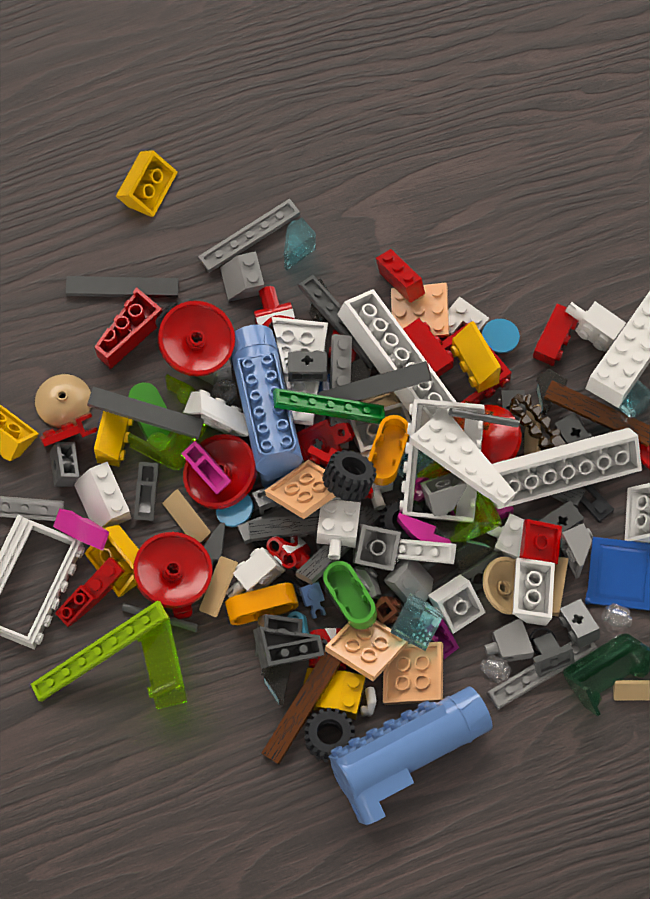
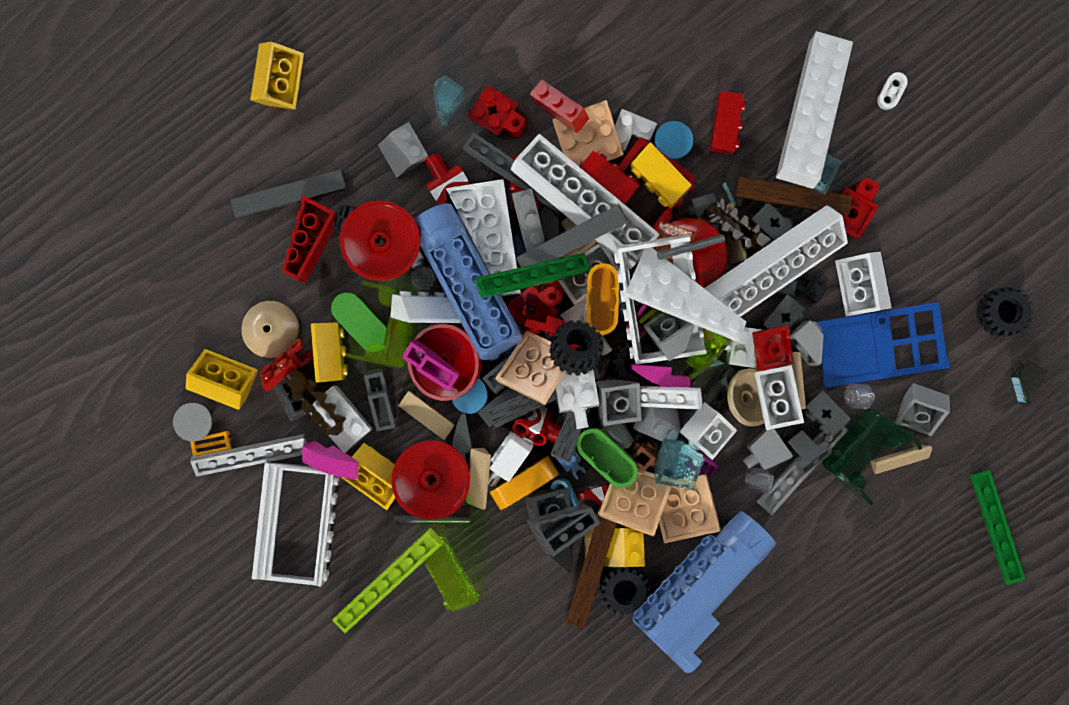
camera: 20 degrees left, 20 degrees up
(77, 449) = (298, 384): none -> dark brown sword
(90, 593) = (358, 517): red slope -> none
(145, 412) = (353, 330): dark grey tile -> none
(249, 235) = (396, 103): light grey plate -> none
(307, 366) = (508, 235): dark grey brick -> none
(347, 276) = (506, 115): none -> red plate
(371, 702) = (653, 546): white arm -> none
(596, 325) = (767, 103): white brick -> none

